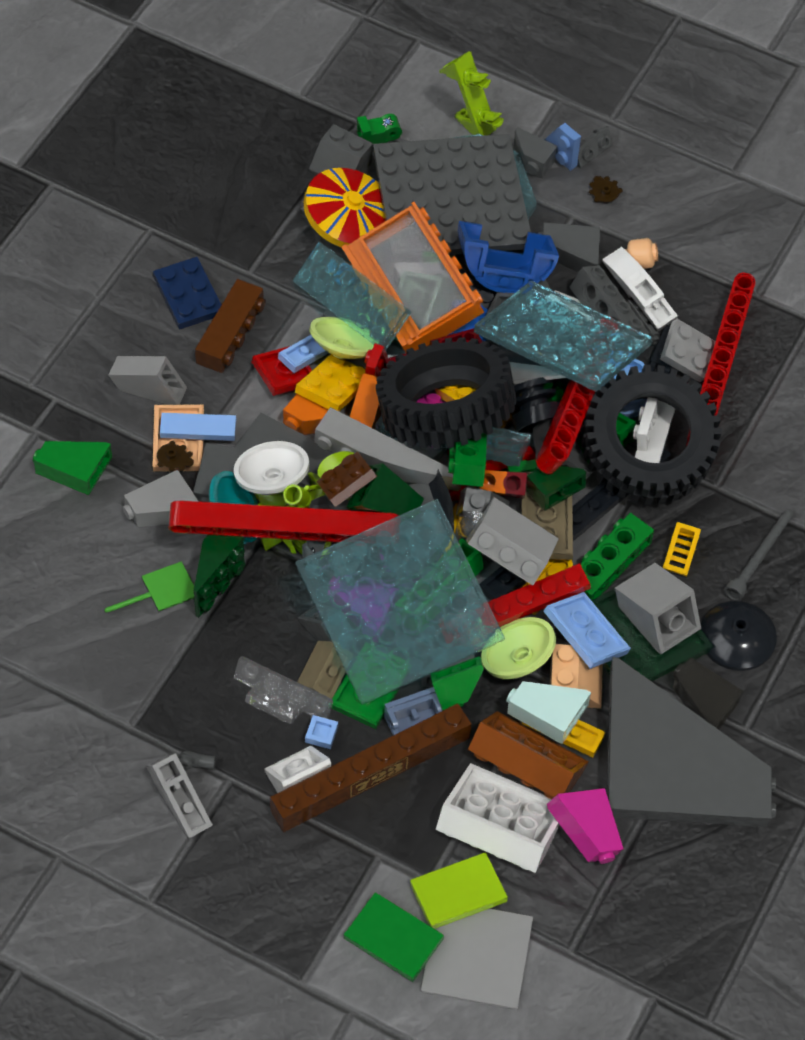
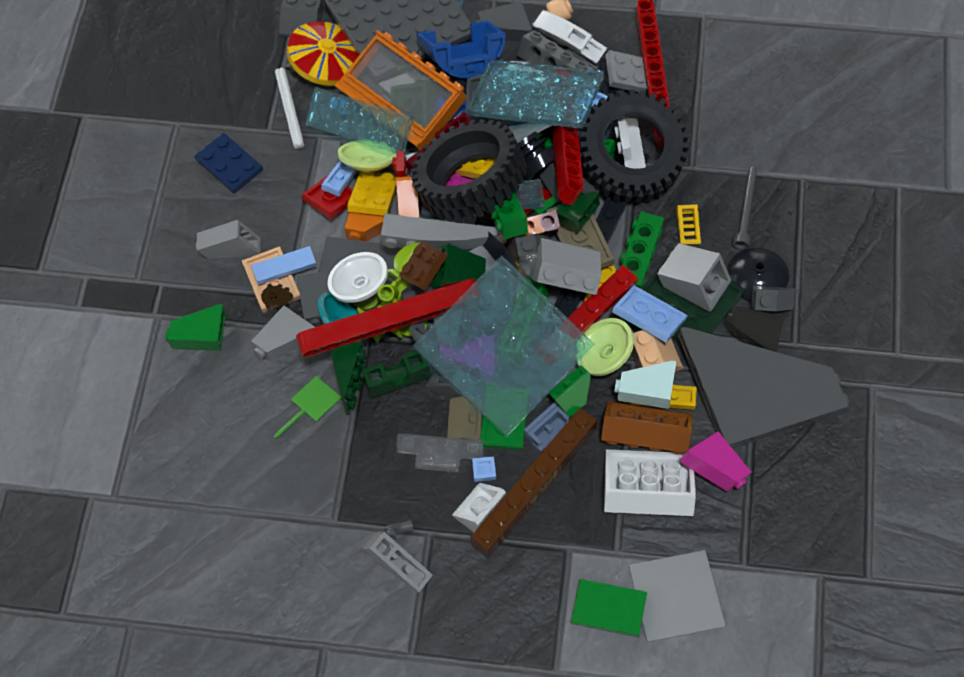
camera: 15 degrees left, 5 degrees up
(230, 326) = (273, 177): reddish brown brick -> none
(253, 593) = (384, 380): none -> dark green arch
(283, 256) = (289, 108): none -> white axle
(458, 890) = (641, 552): lime tile -> none
(741, 667) = (772, 298): none -> dark grey slope

